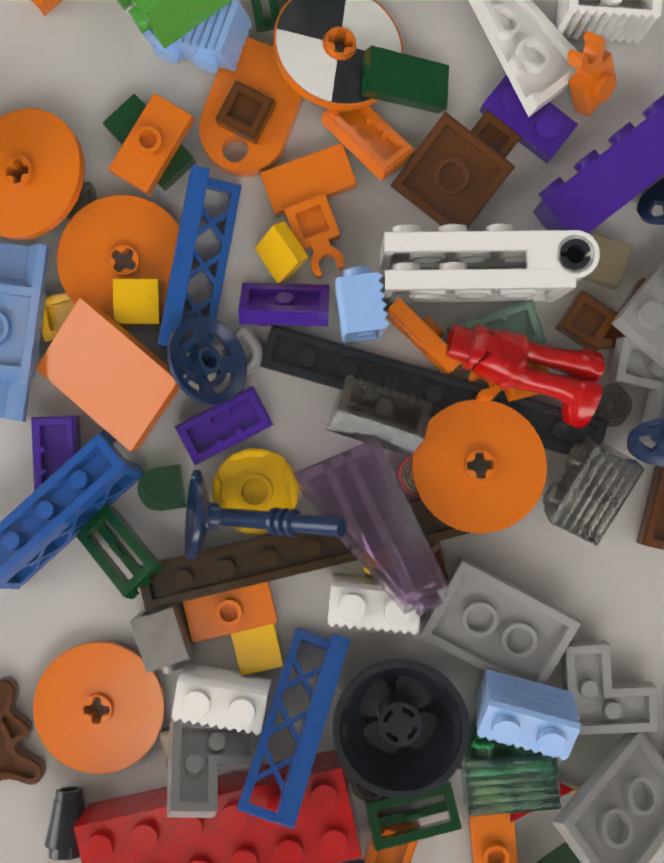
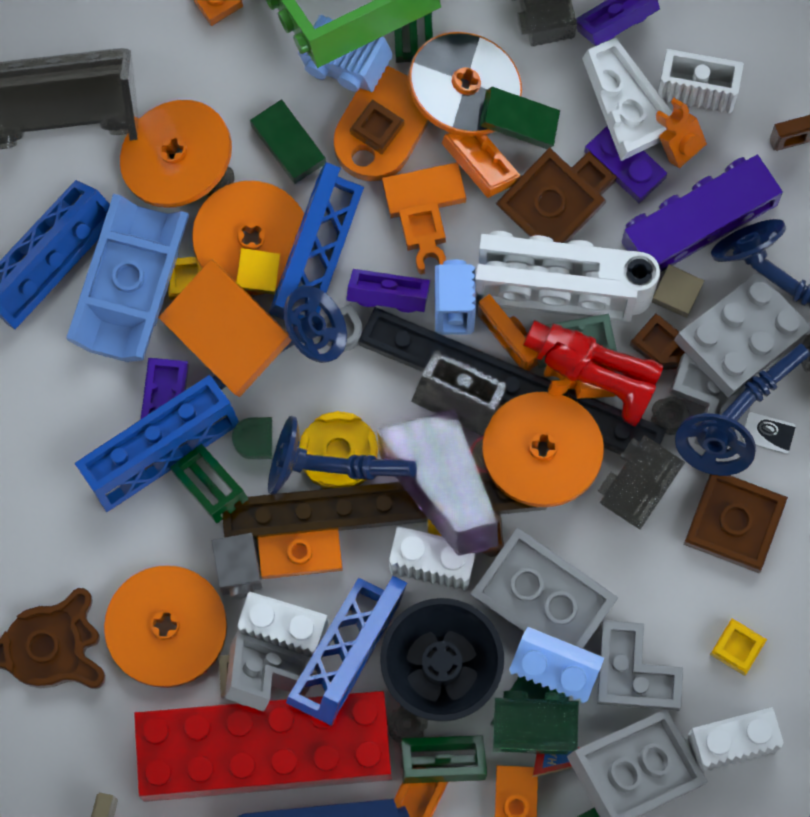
camera: 10 degrees right, 15 degrees down
(66, 811) = (118, 730): black cone -> none
(151, 144) = (291, 143): orange plate -> none
(224, 426) = (319, 388): dark purple plate -> none
(258, 649) = (320, 590): yellow tile -> none
(281, 252) = (391, 246): yellow tile -> none

